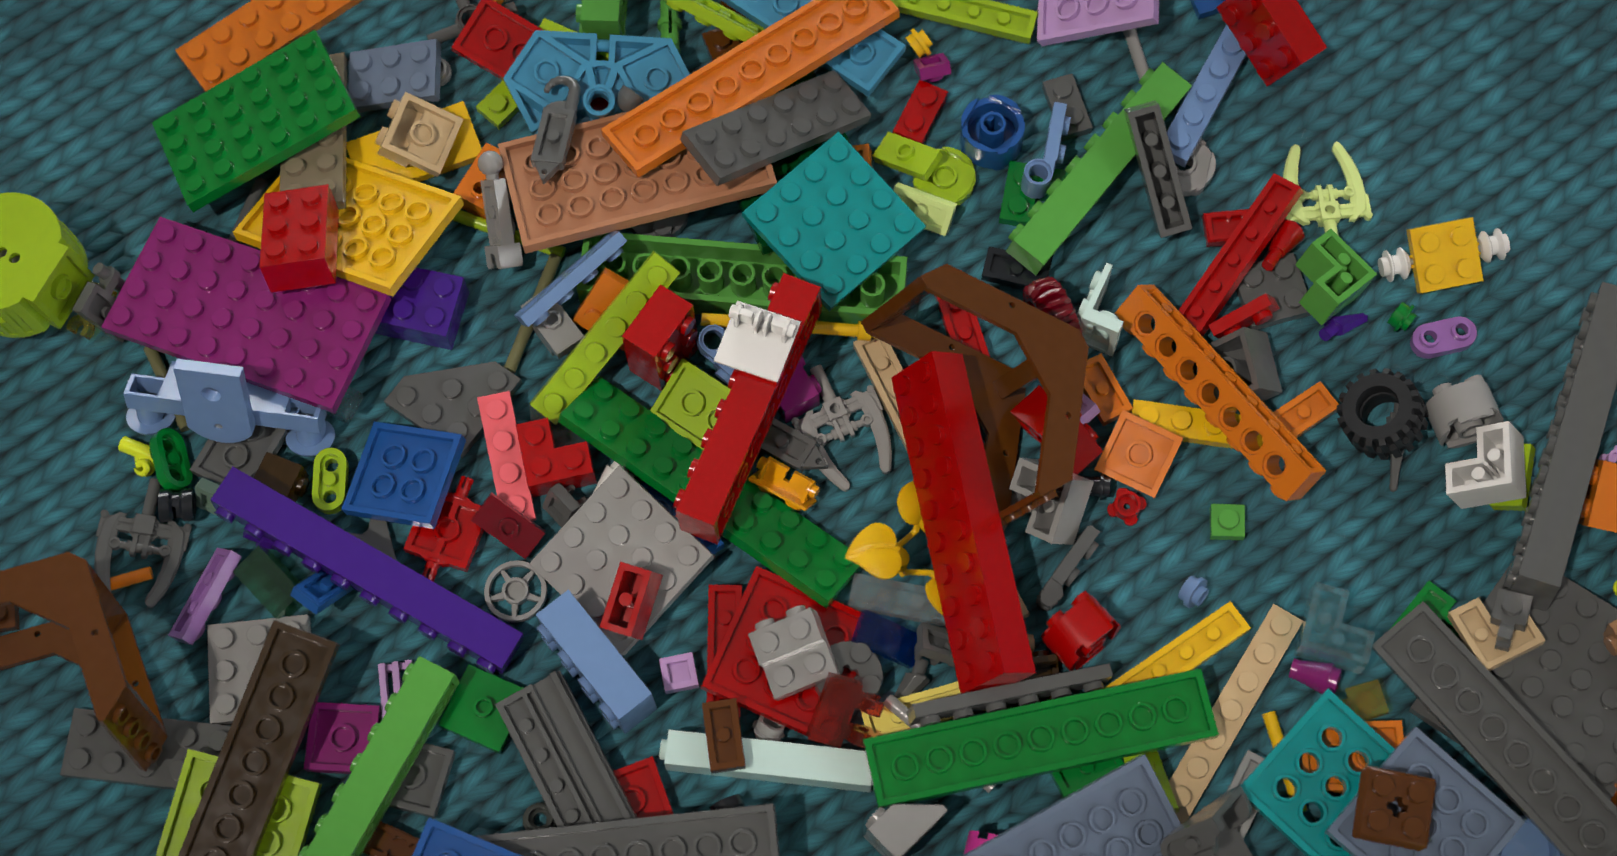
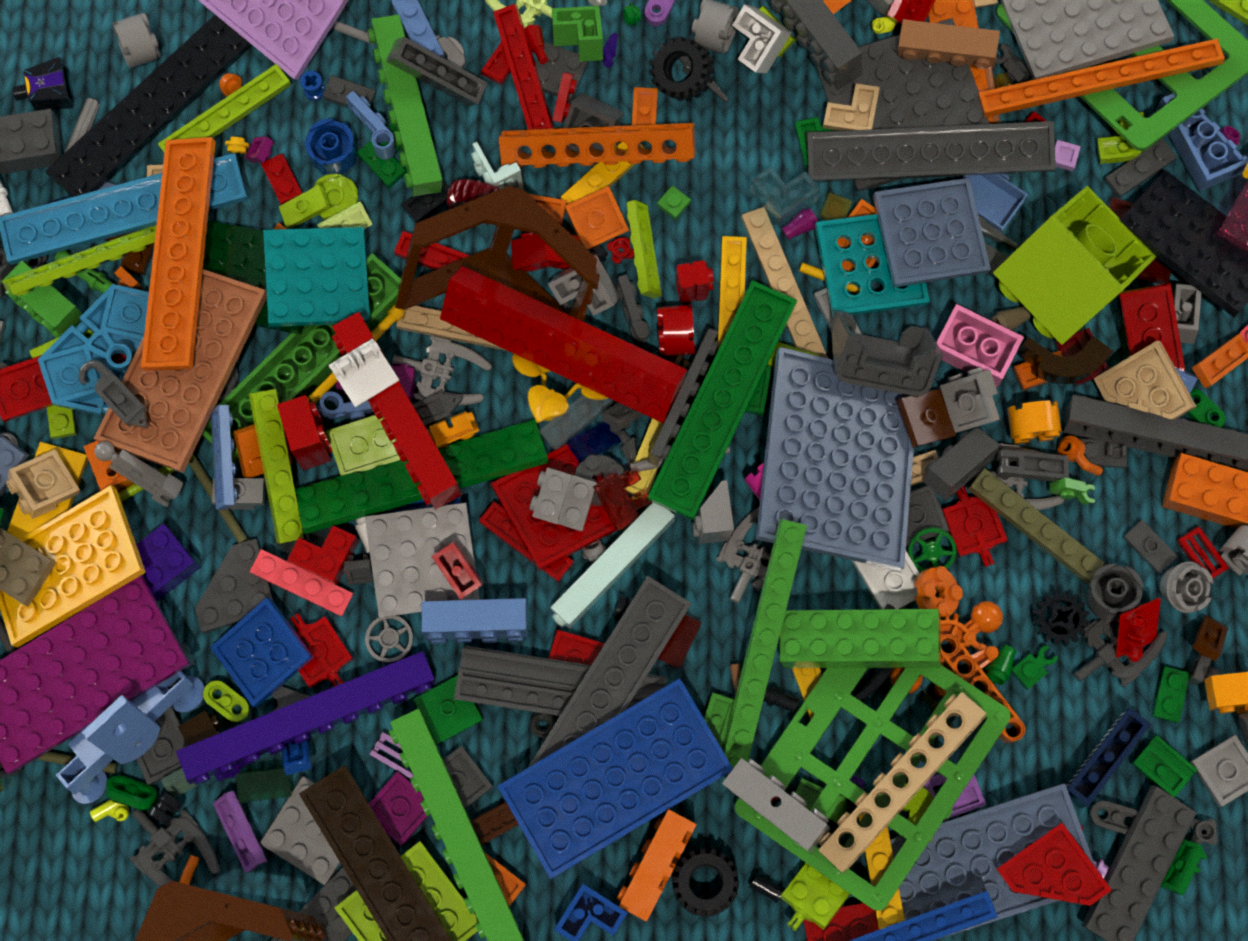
camera: 55 degrees left, 5 degrees up
(299, 238) = (57, 602): red brick -> none
(508, 525) = (346, 612): dark red plate -> none
(628, 99) = (131, 338): dark grey hinge -> none
(679, 673) = (518, 577): lavender plate -> none
(691, 51) = (126, 279): none -> orange plate
(723, 735) = (581, 576): reddish brown plate -> none
(775, 127) = (227, 265): dark grey plate -> none
(1048, 55) = (312, 85): none -> blue bush
(1146, 529) = (644, 250): none -> lime plate
(1149, 608) = (693, 281): none -> red brick
(1193, 591) = (701, 251): medium blue plate -> none
(1376, 822) = (915, 252): reddish brown brick -> none
(1510, 614) = (852, 92): dark grey plate -> none

